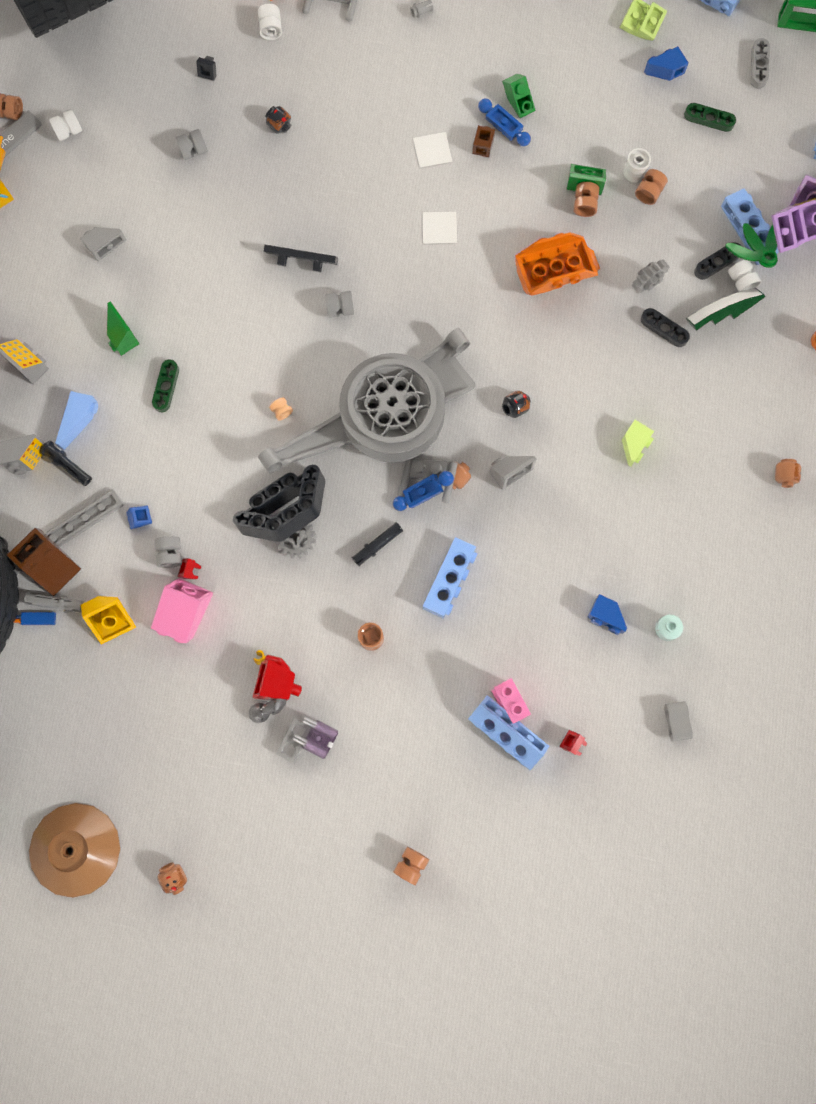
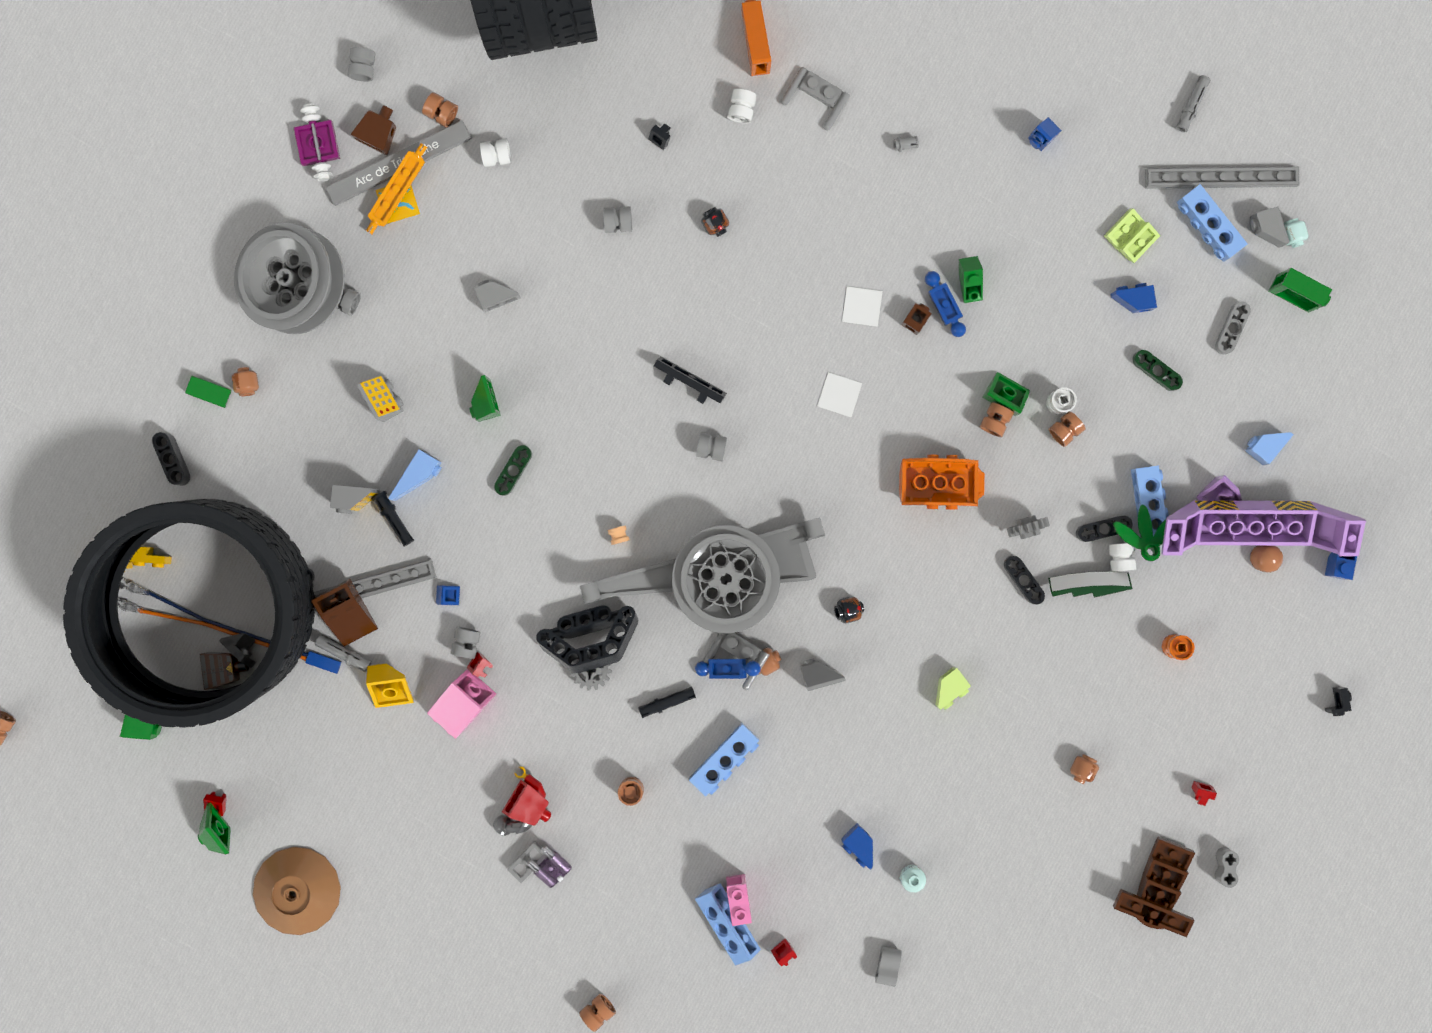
camera: 15 degrees right, 10 degrees up
(172, 878) = (378, 949): nougat head -> none

